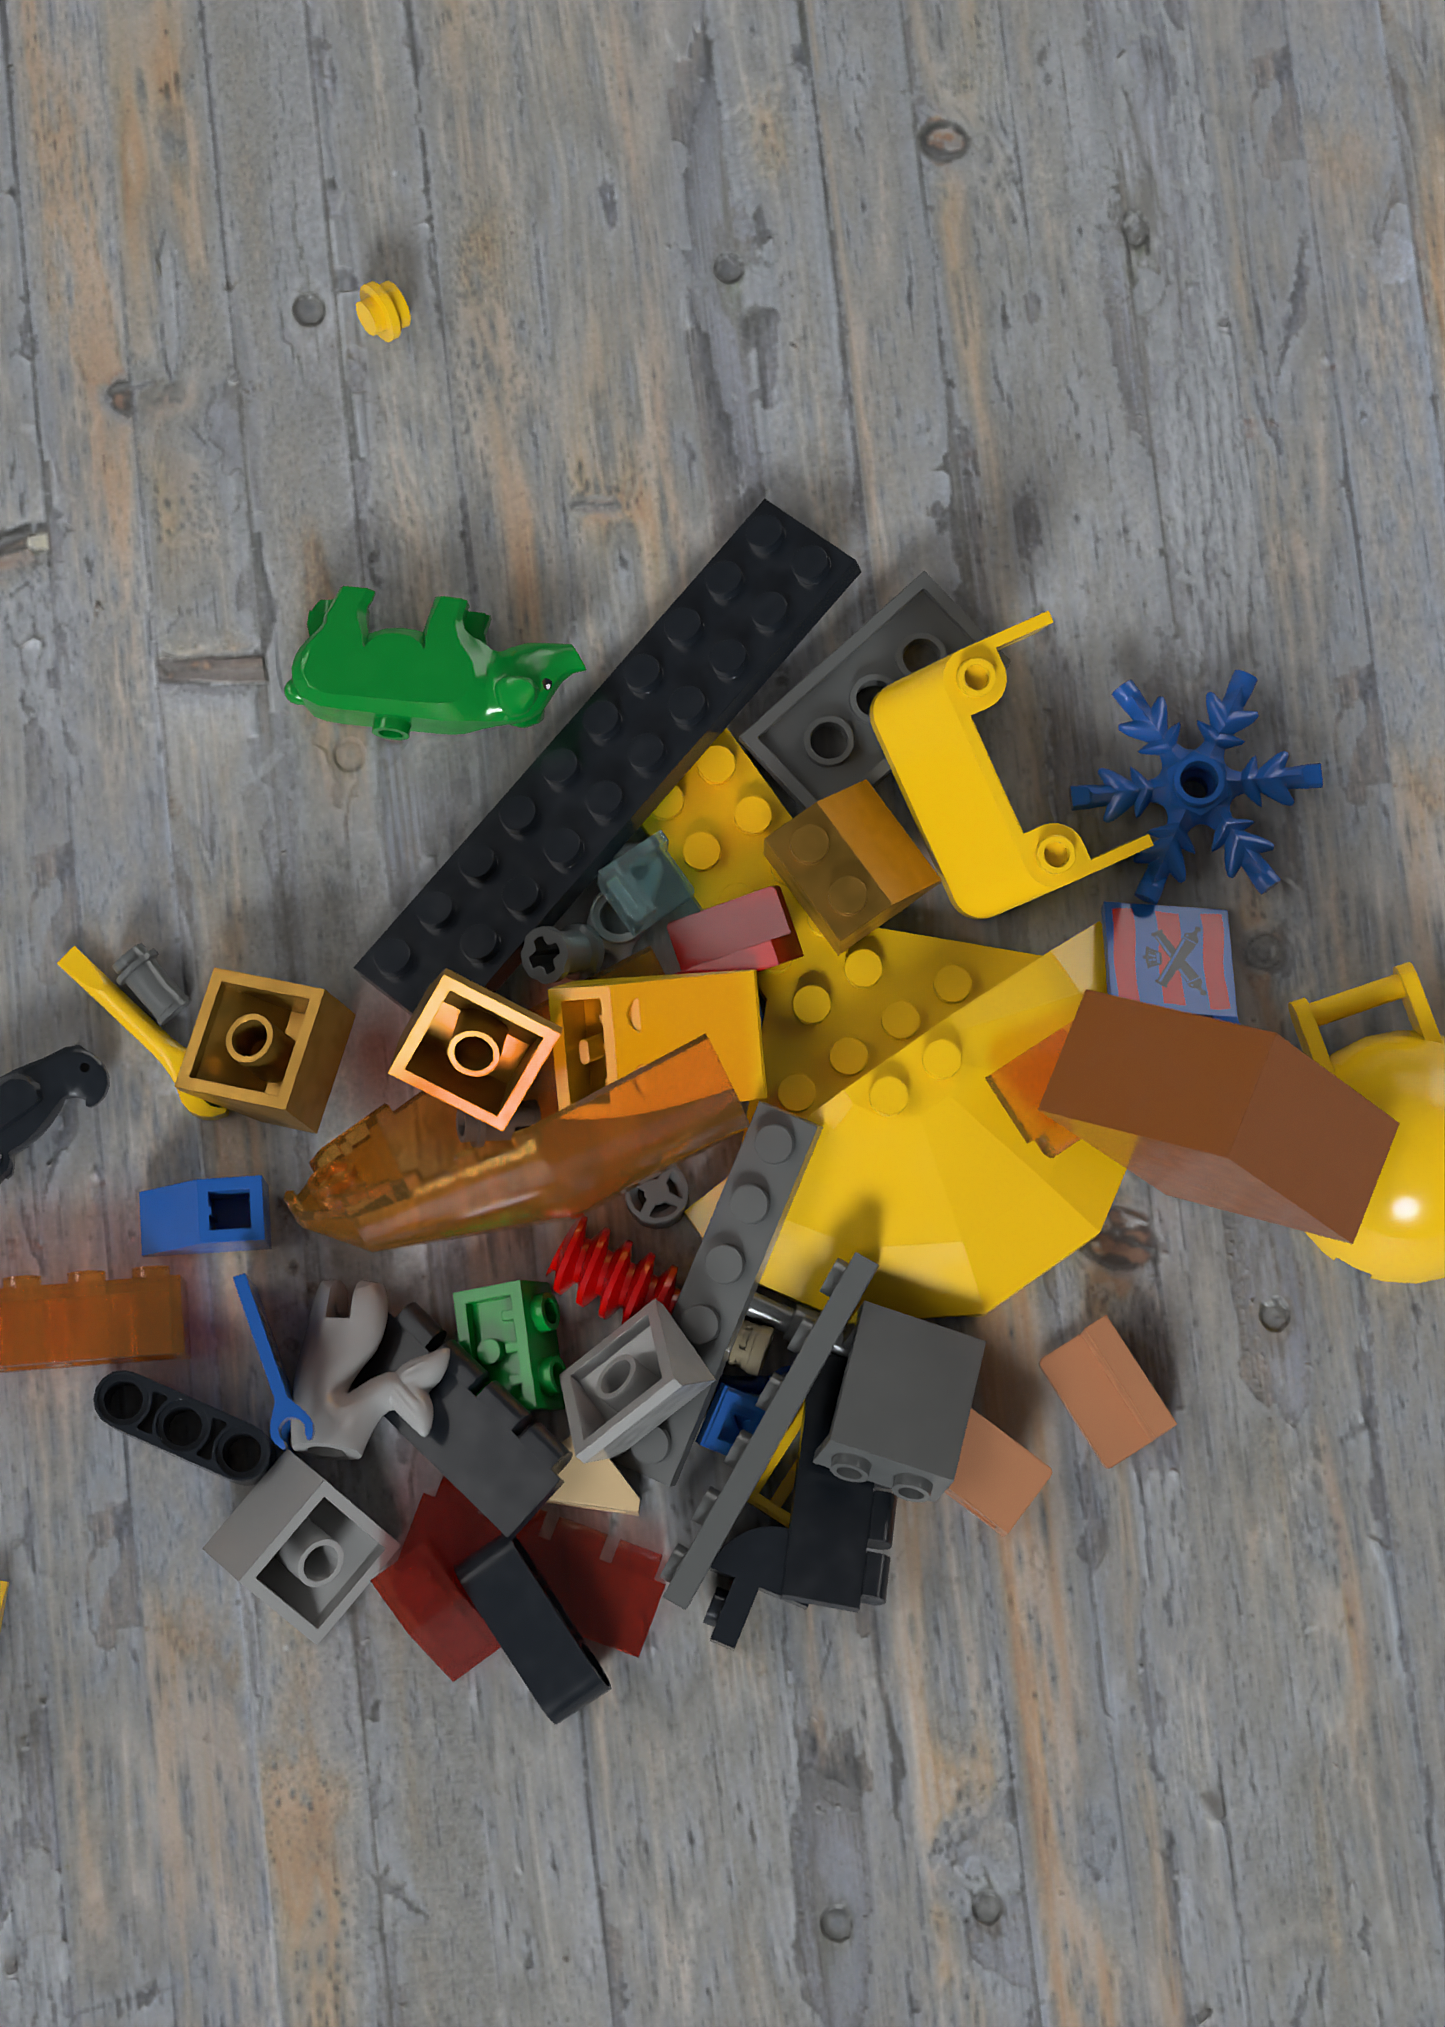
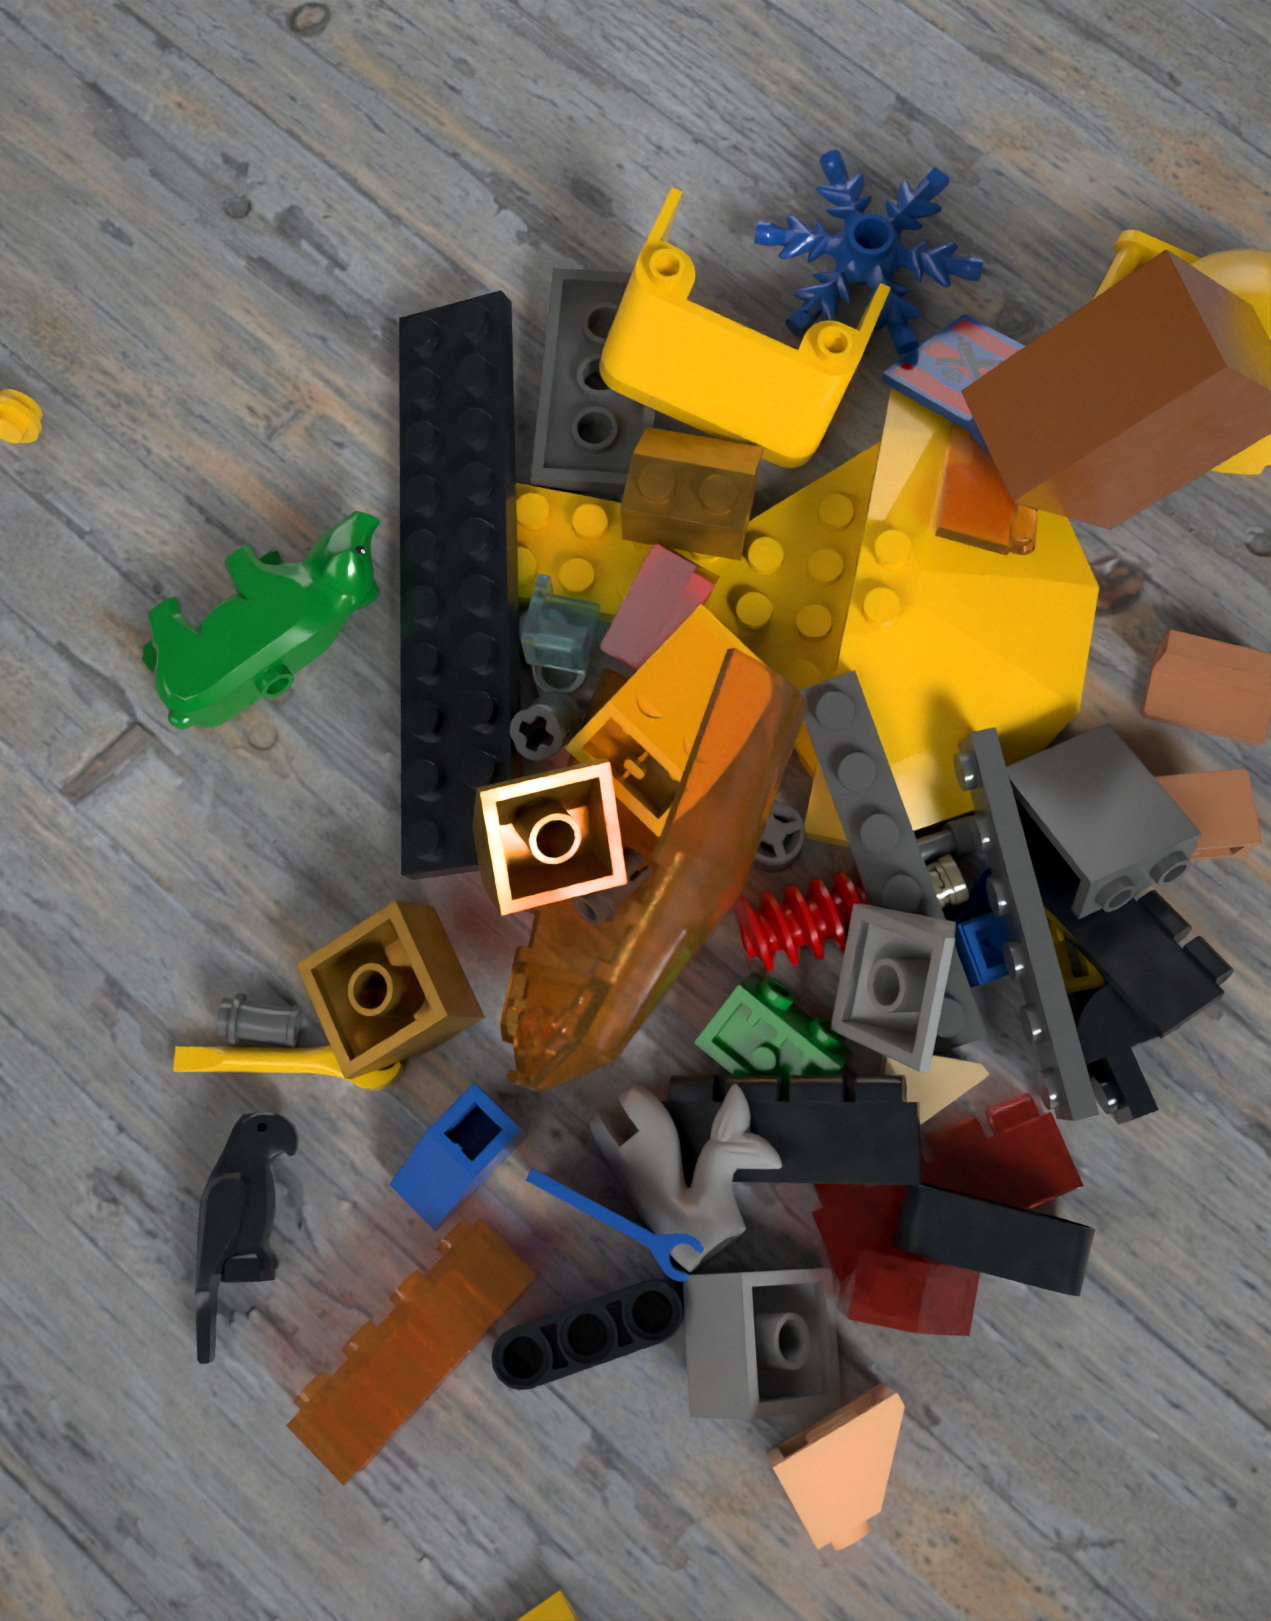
camera: 35 degrees left, 5 degrees down
(270, 1673) = (841, 1467): none -> light nougat slope

